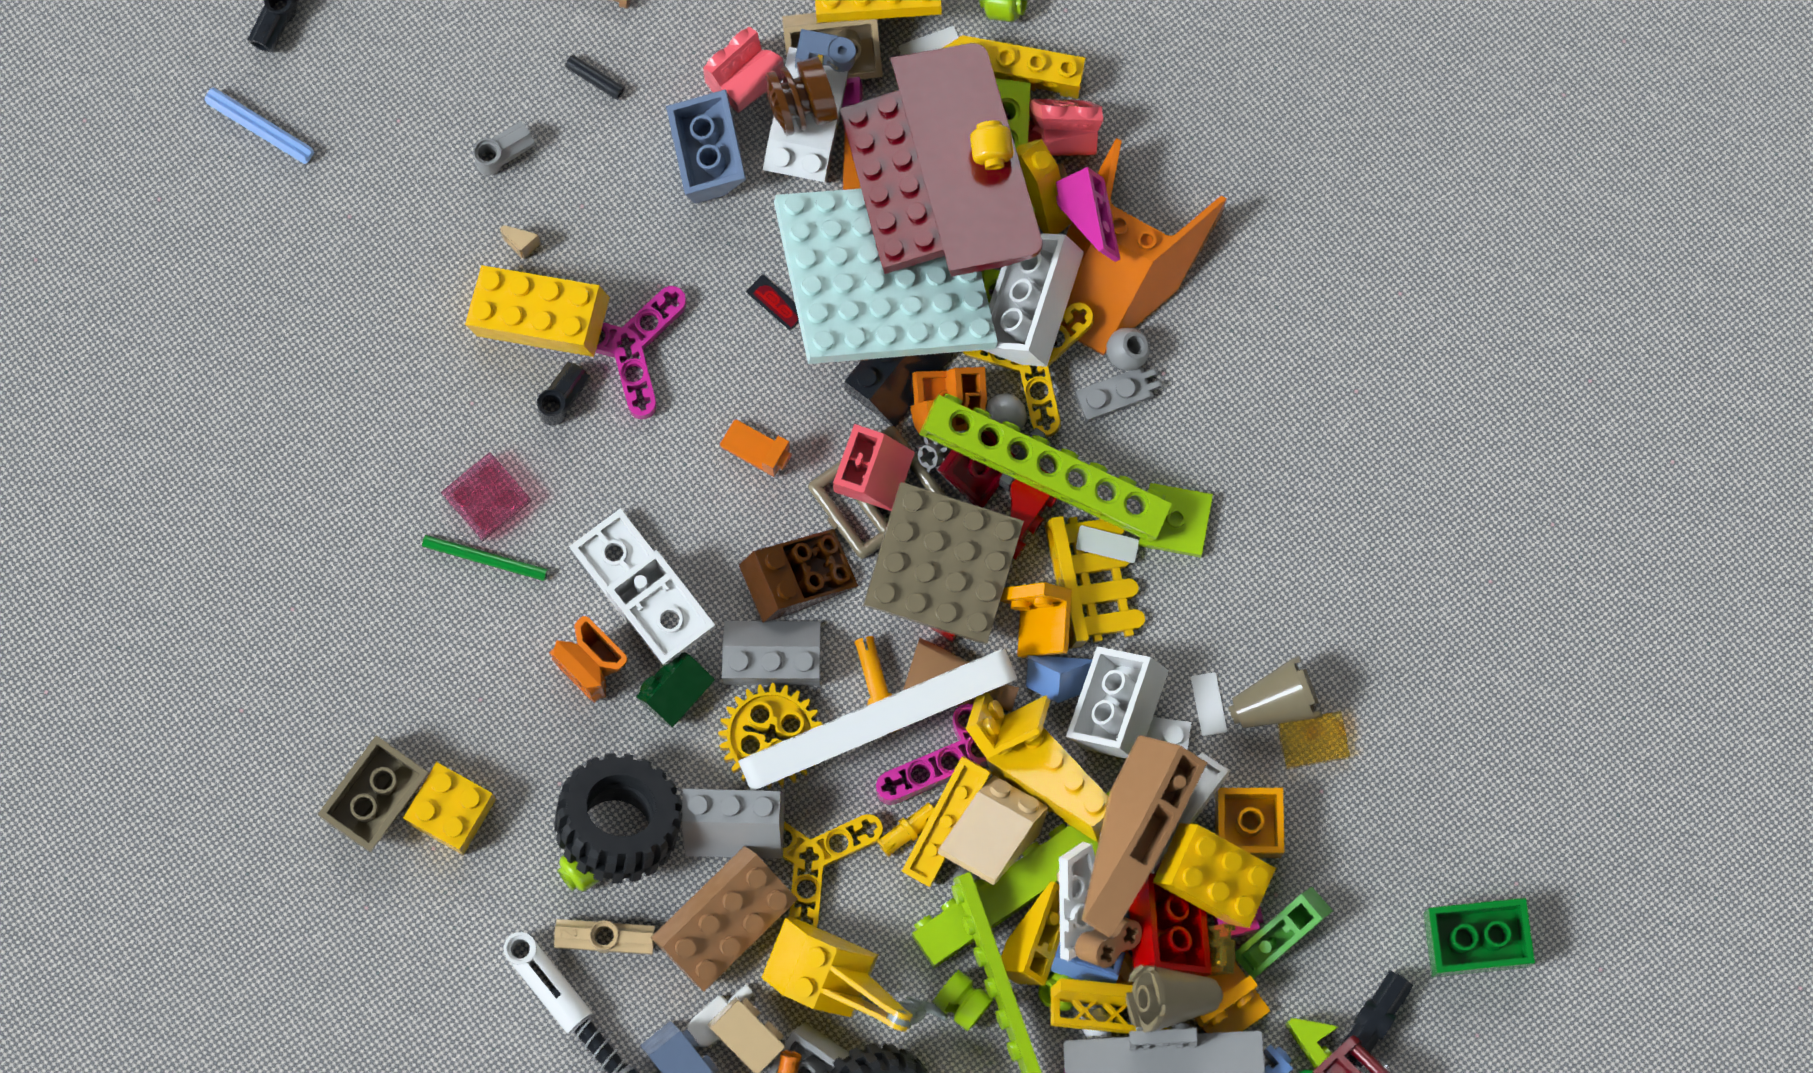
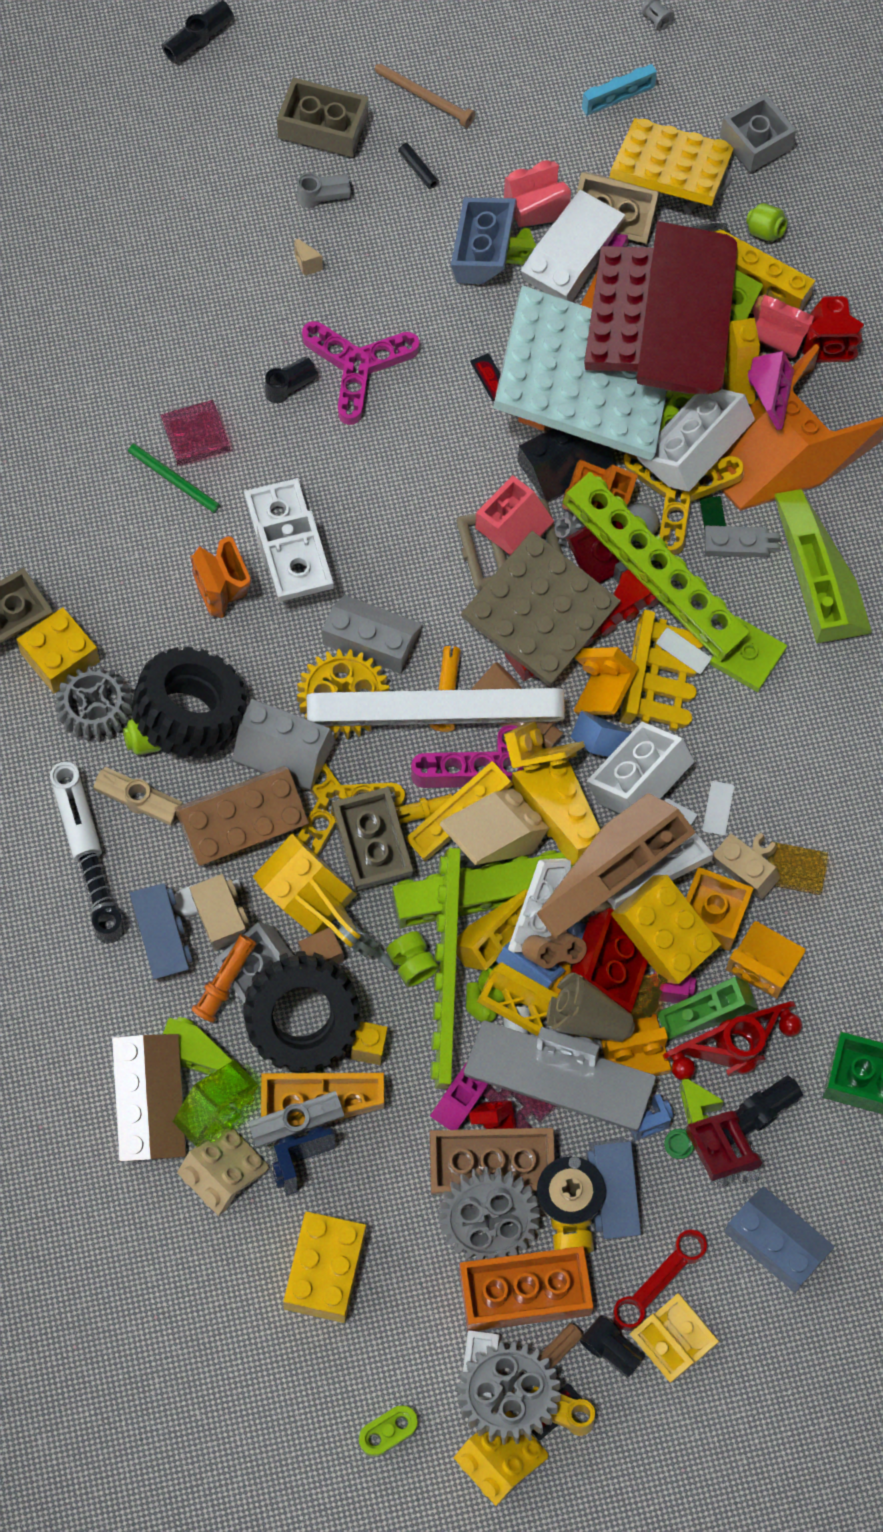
camera: 20 degrees right, 10 degrees down
(259, 125) = (143, 109): light blue axle -> none
(467, 62) = (322, 117): none -> dark tan brick
(528, 854) = (78, 691): none -> light grey gear
(537, 310) = (297, 308): yellow brick -> none
(674, 688) = (280, 626): dark green brick -> none
(750, 135) = (520, 247): none -> lime bracket
(756, 448) = (427, 476): orange bracket -> none
(797, 574) = (418, 580): reddish brown slope -> none
(801, 96) = (573, 218): reddish brown wheel -> none
(831, 49) = (606, 197): sand blue leg -> none
(863, 1030) = (324, 944): none -> medium nougat brick
(870, 890) = (372, 839): none -> dark tan brick
(941, 34) = (712, 226): none -> sticker
(991, 144) = (711, 301): yellow head -> none
(1043, 1020) = (474, 1008): none -> lime arm
(1076, 369) = (712, 511): none -> dark green sticker
(1126, 110) = (834, 331): none -> red piece
(1128, 349) = (761, 508): light grey piece -> none
(1217, 394) = (822, 573): none -> lime wedge
(1264, 760) = (748, 864): none -> tan brick
(1277, 698) = (779, 819): dark tan cone -> none
(1321, 853) = (765, 959): none -> light orange bracket
(1371, 915) = (725, 1052): none -> red piece

